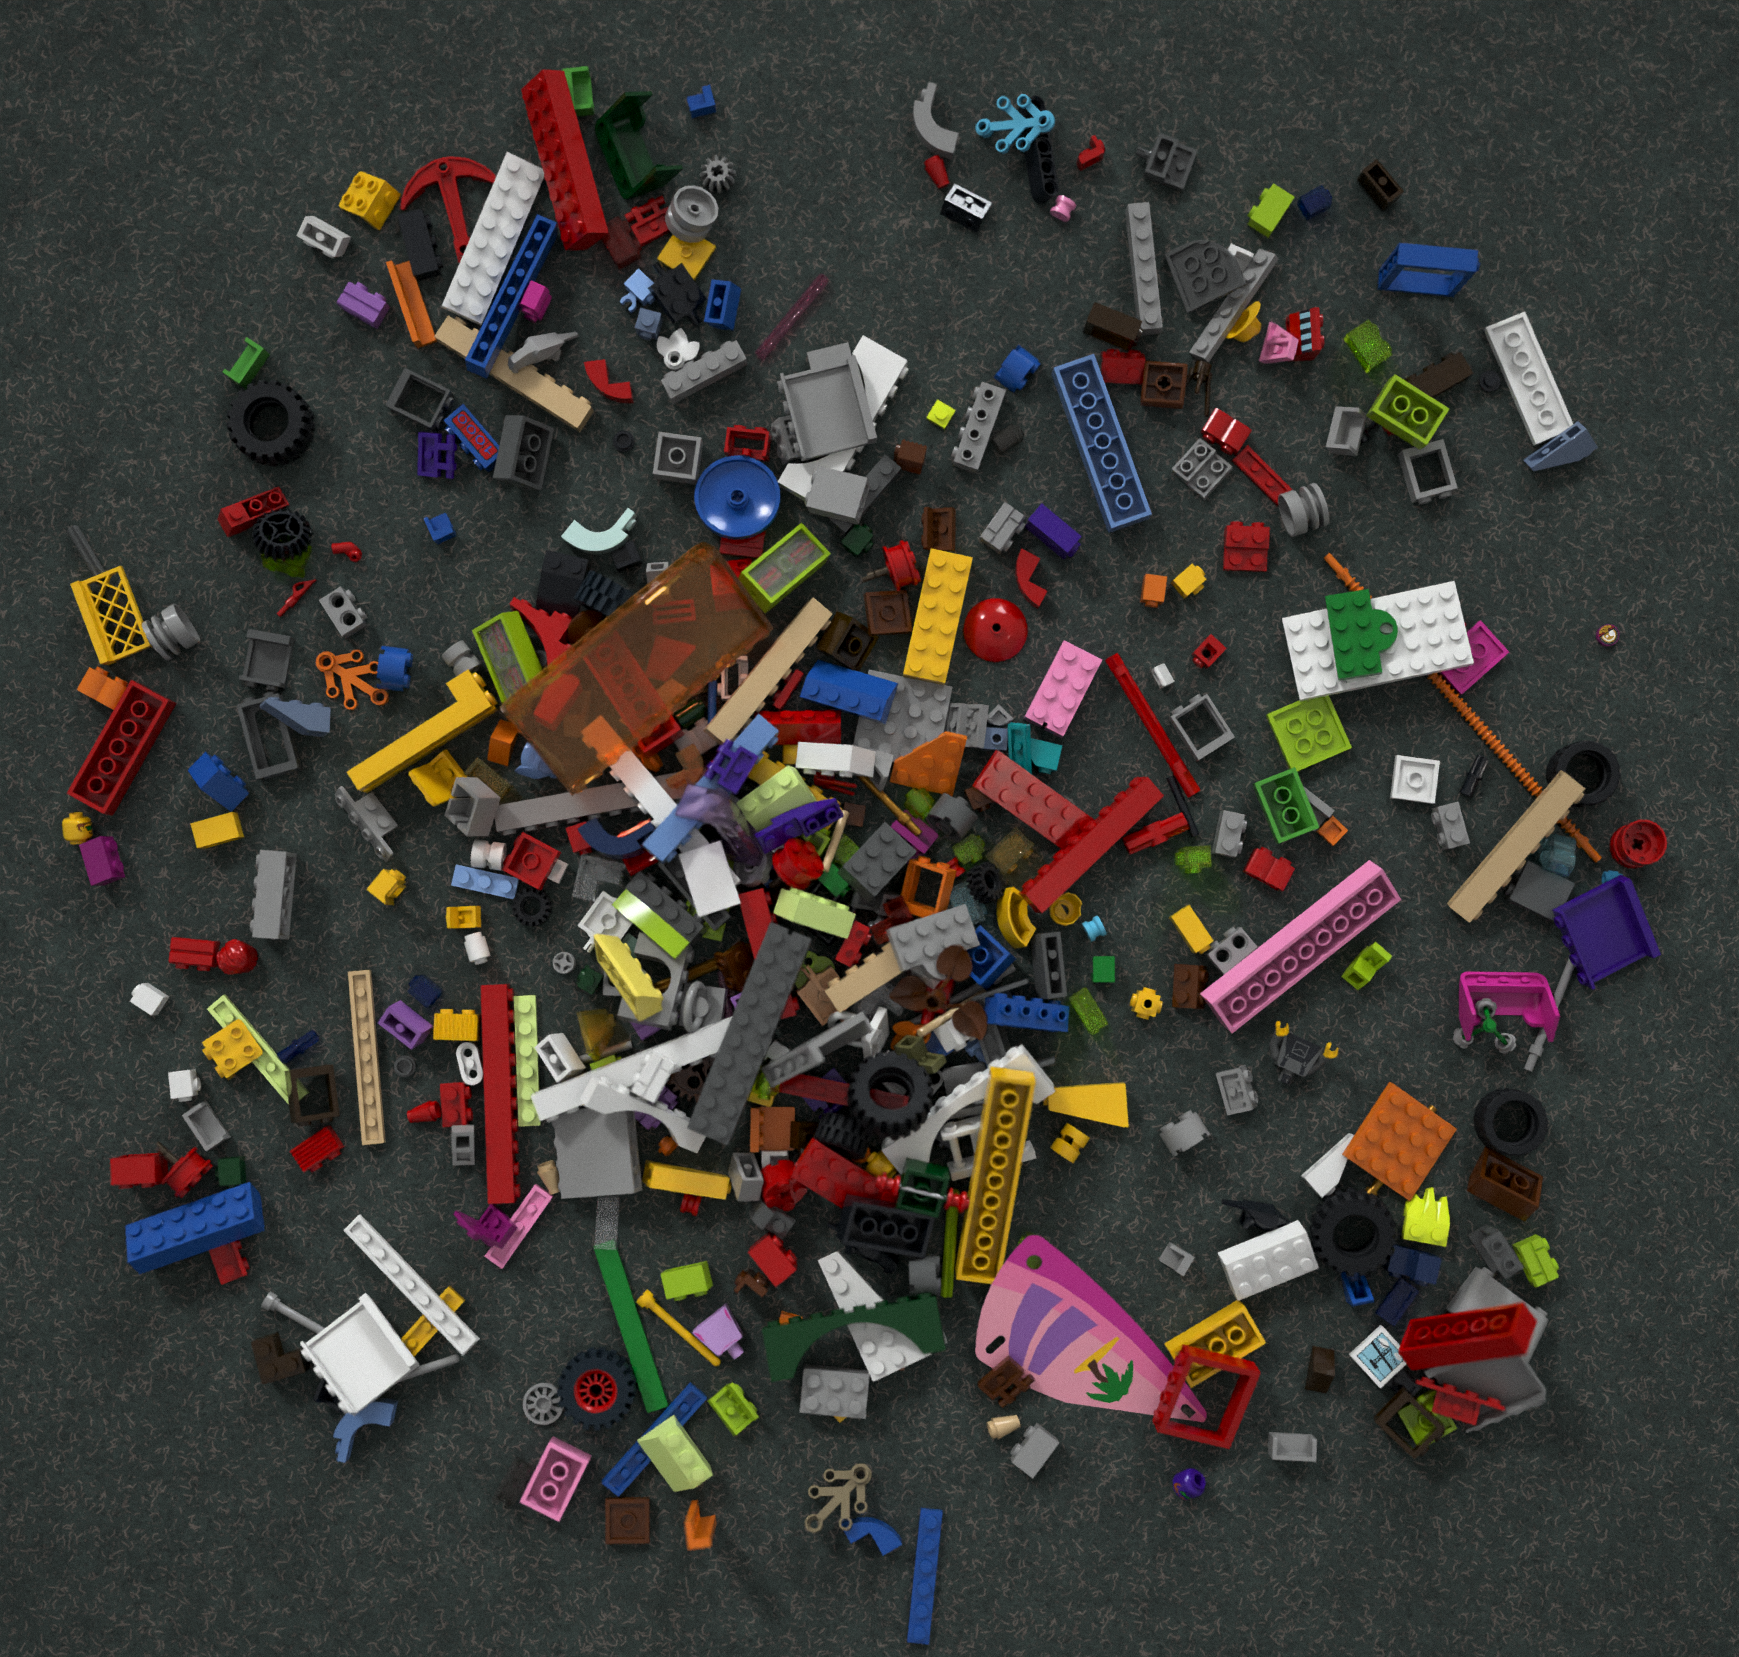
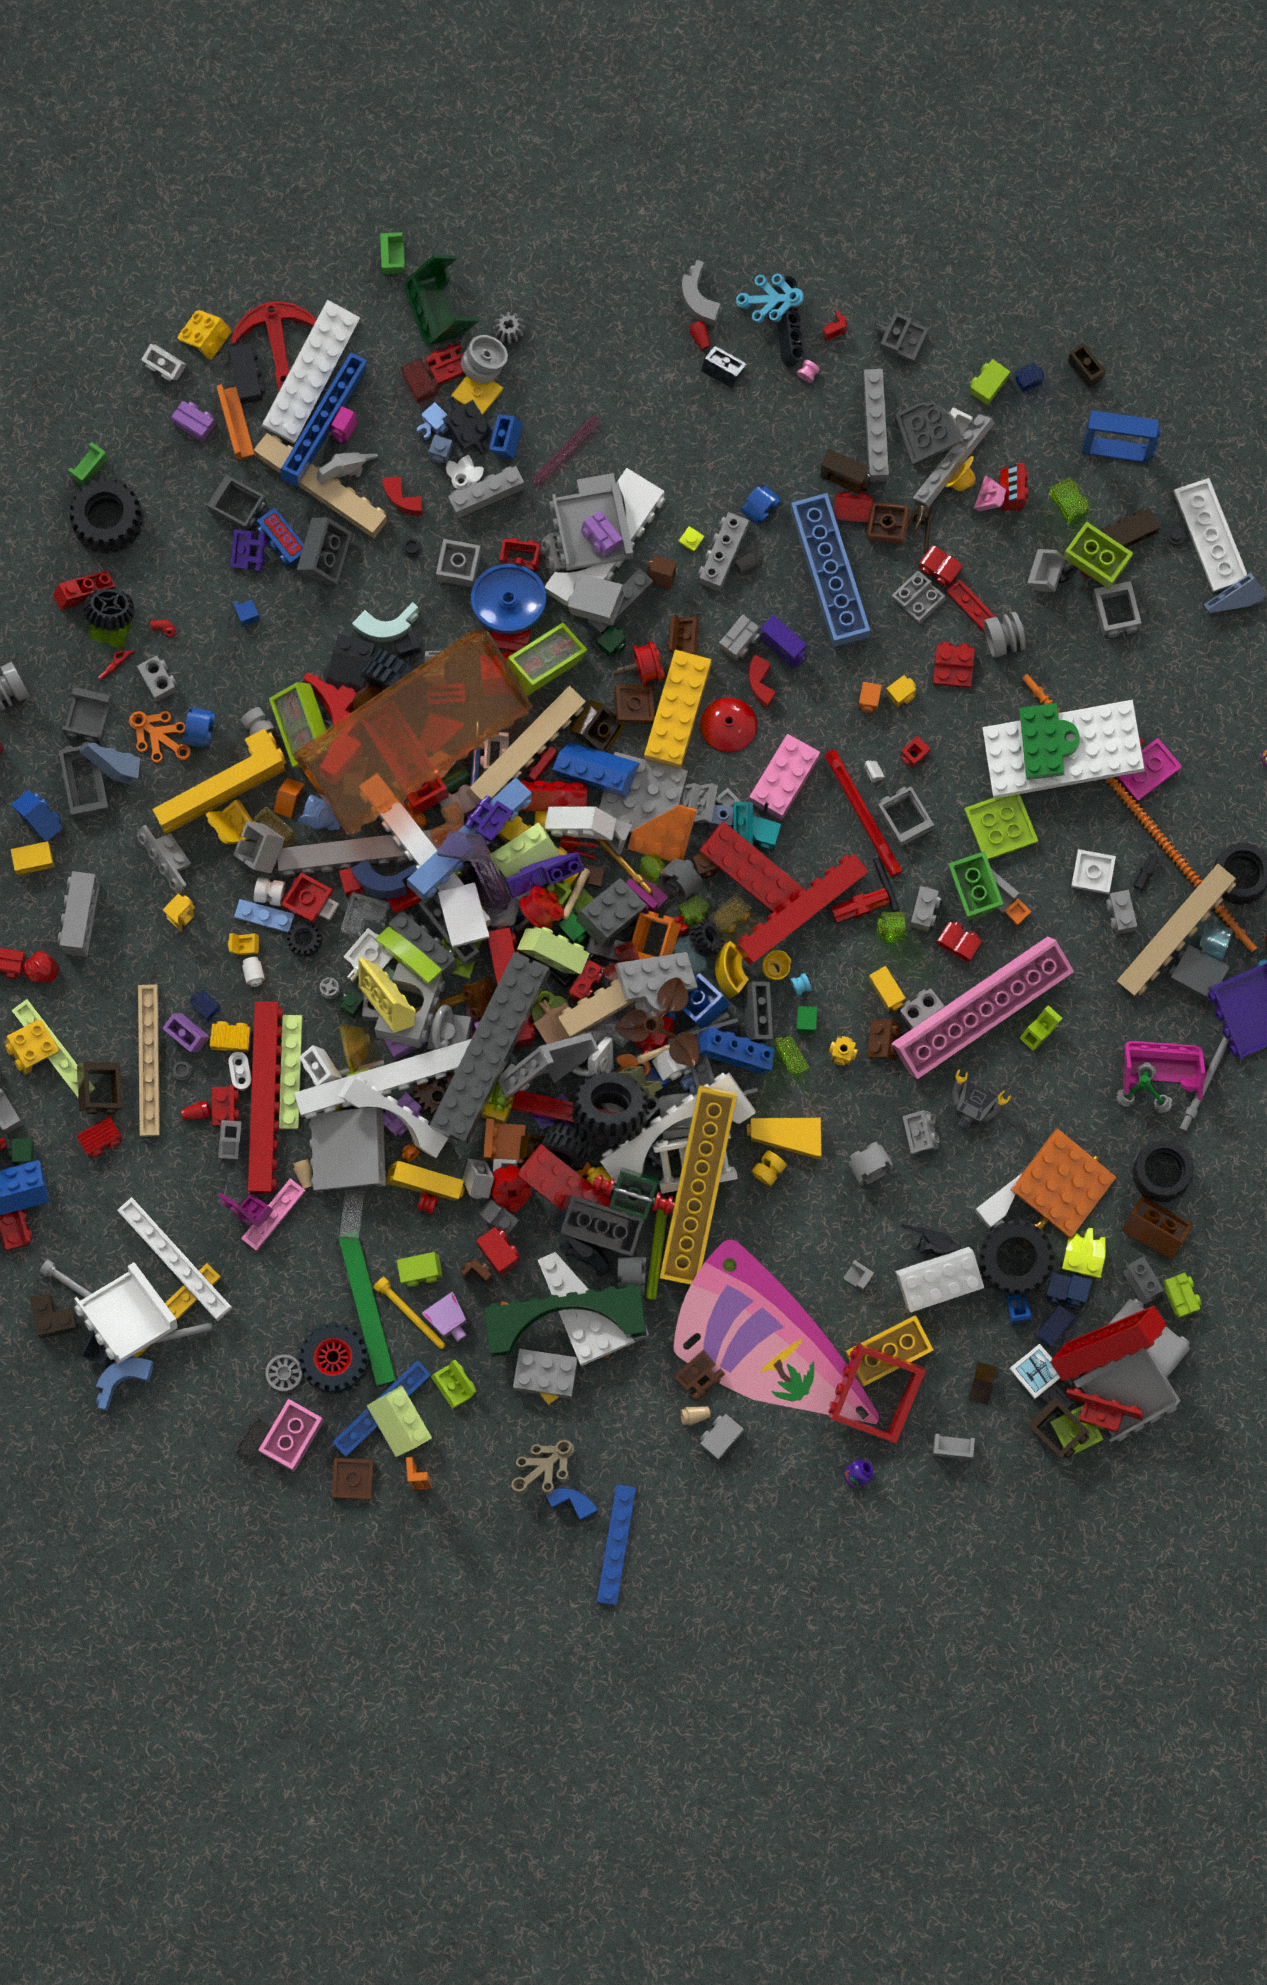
camera: 10 degrees right, 10 degrees down
(298, 1046) = (89, 1048): clear blue axle -> none
(564, 160) = (377, 309): red brick -> none
(653, 1076) = (403, 1080): white brick -> none
(702, 103) = (499, 268): blue panel -> none
(839, 417) = (601, 534): none -> medium lavender brick

